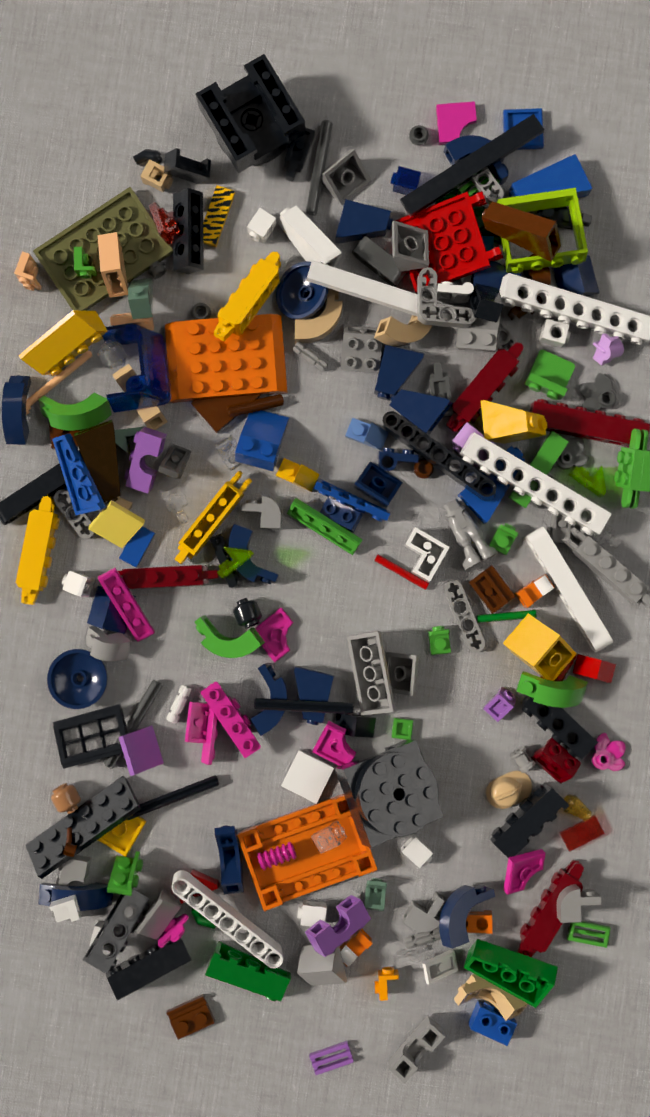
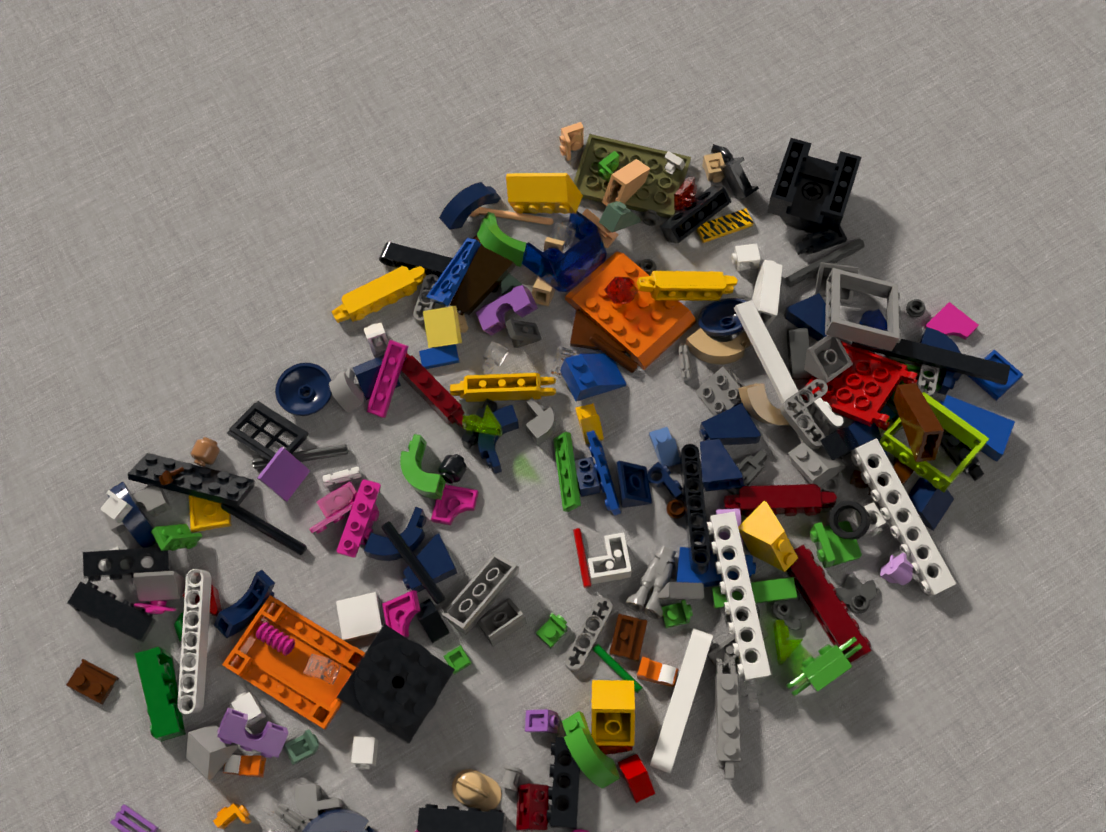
camera: 55 degrees right, 20 degrees down
(126, 206) = (673, 162): none -> white tile
(211, 355) = (621, 290): none -> clear red brick
(388, 216) = (857, 332): none -> light grey window
(496, 522) = (682, 591): none -> light grey slope
(549, 364) = (865, 520): none -> black tyre

